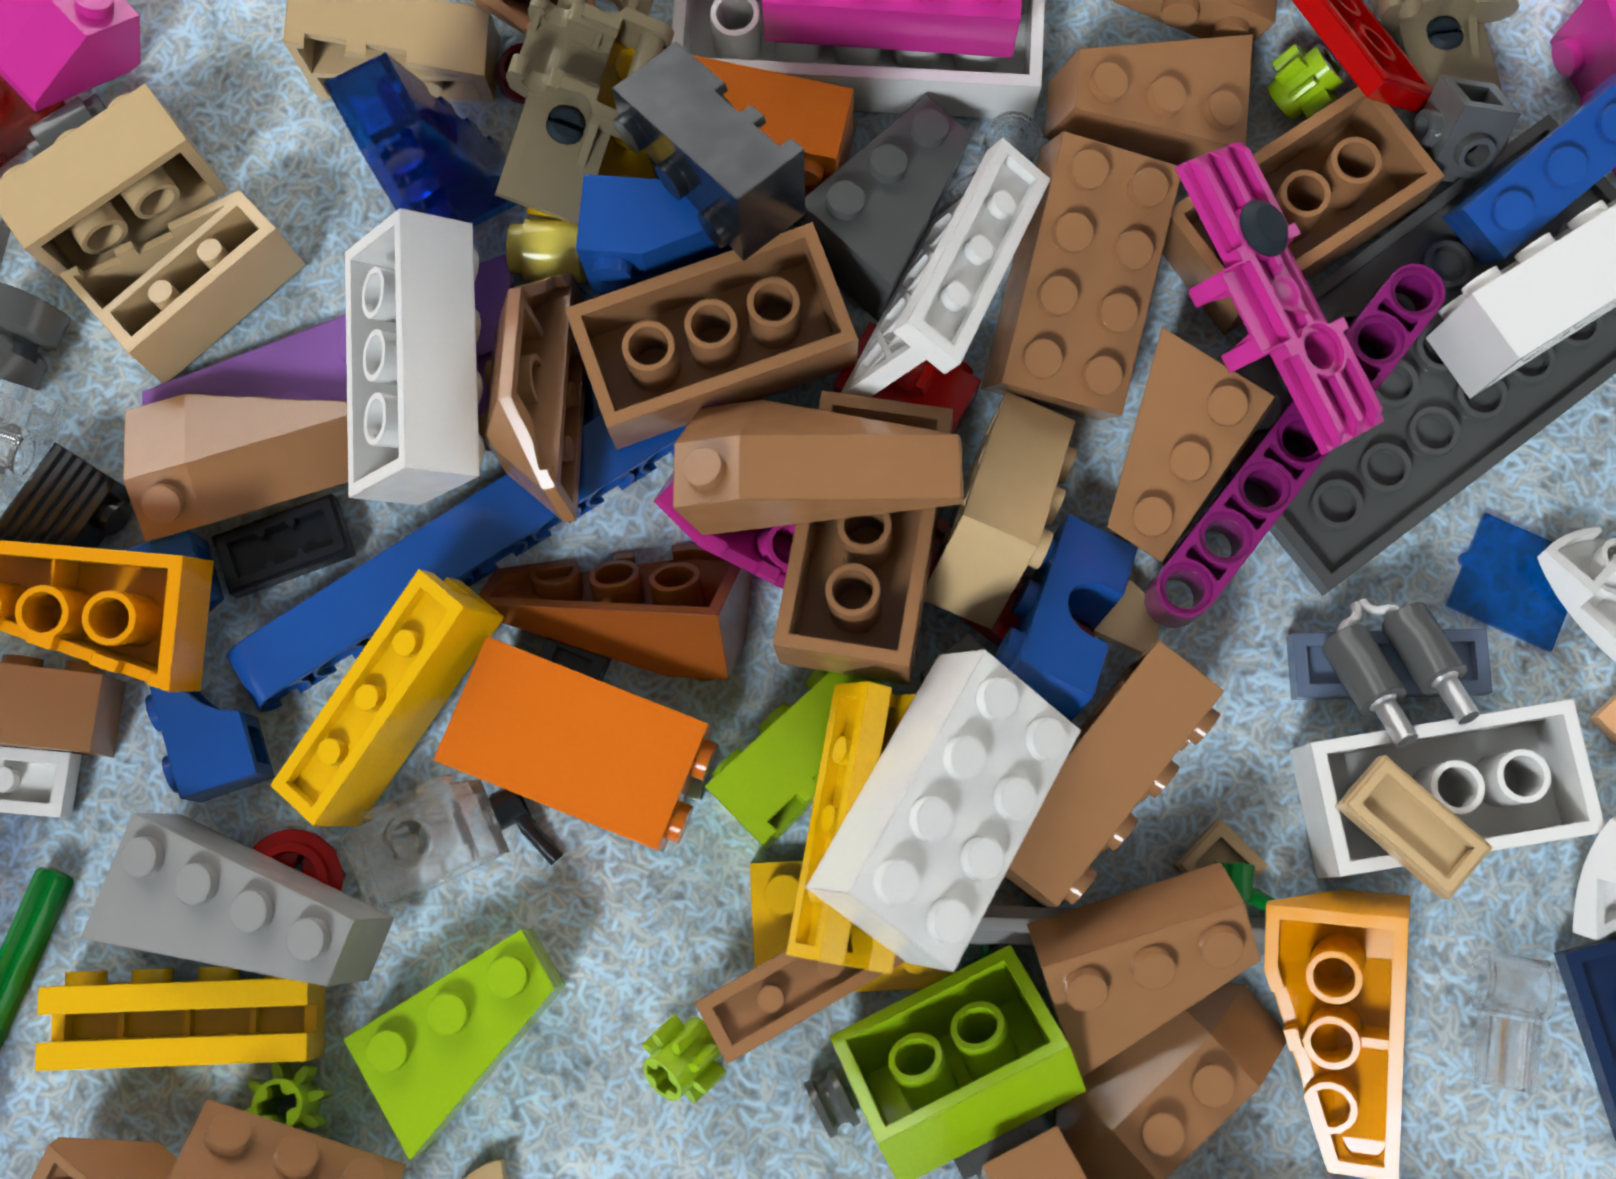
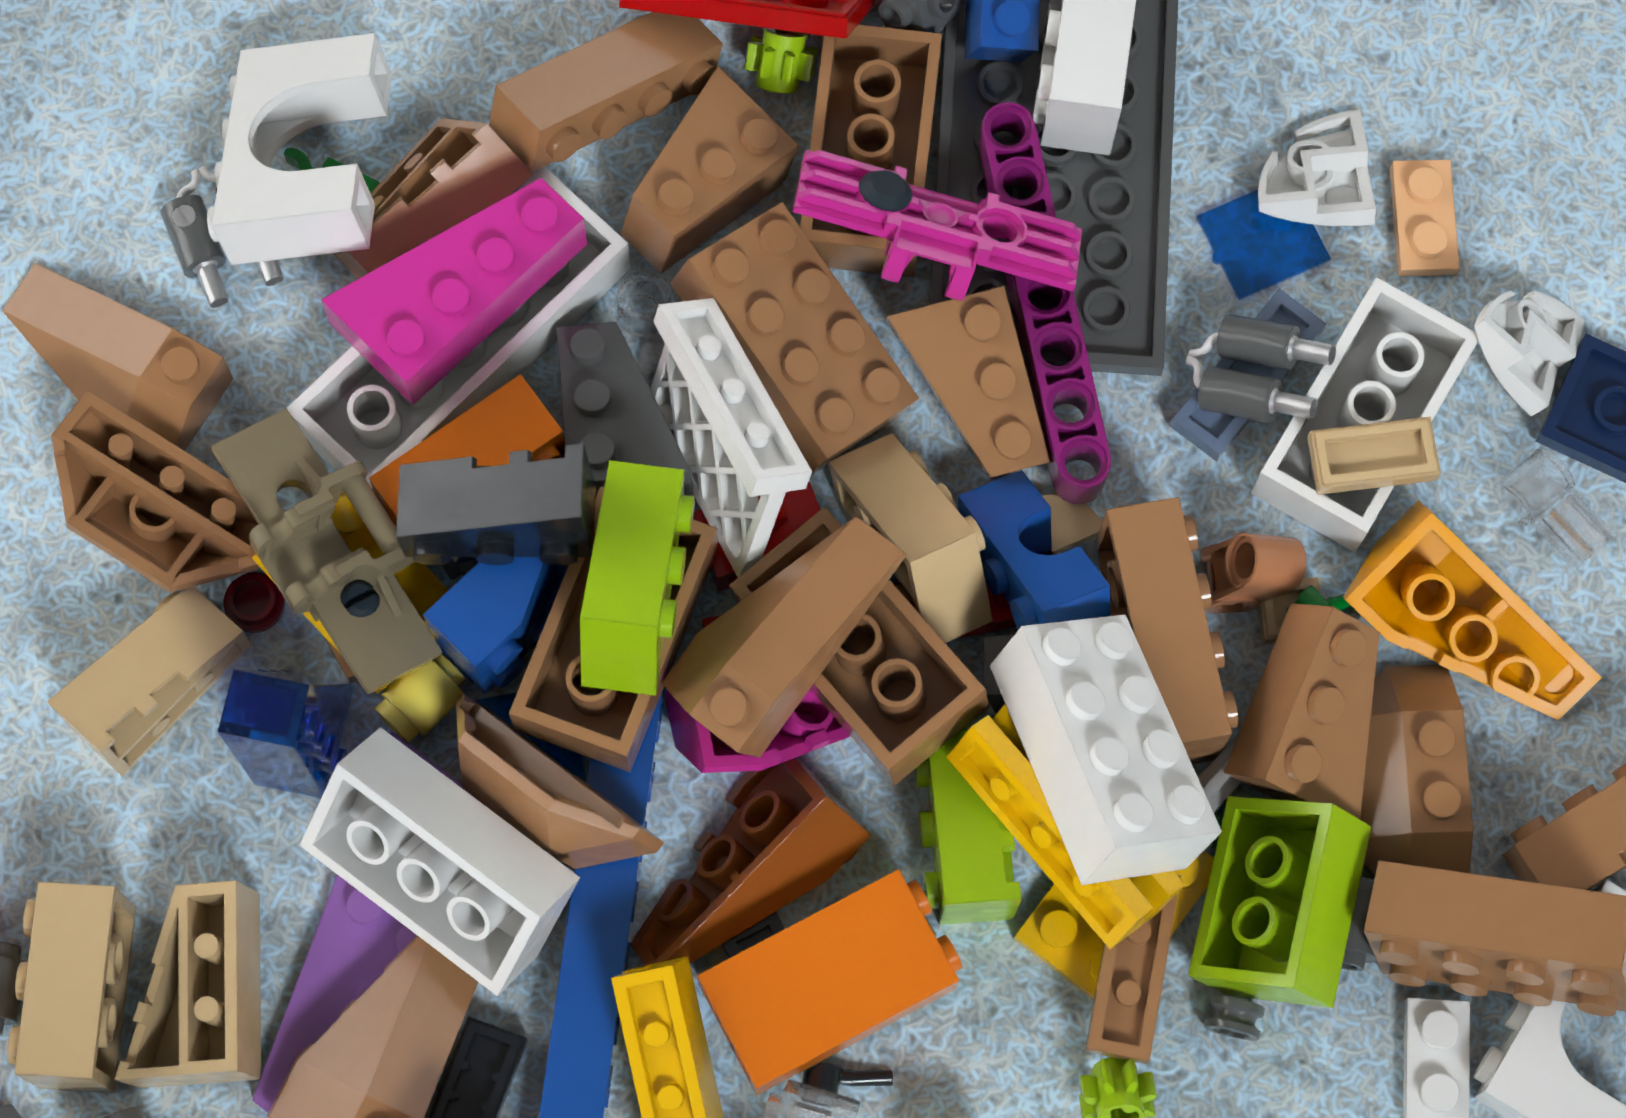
camera: 55 degrees left, 5 degrees down
(748, 299) = (632, 577): none -> lime wedge
(1222, 806) = (1252, 570): none -> nougat piece

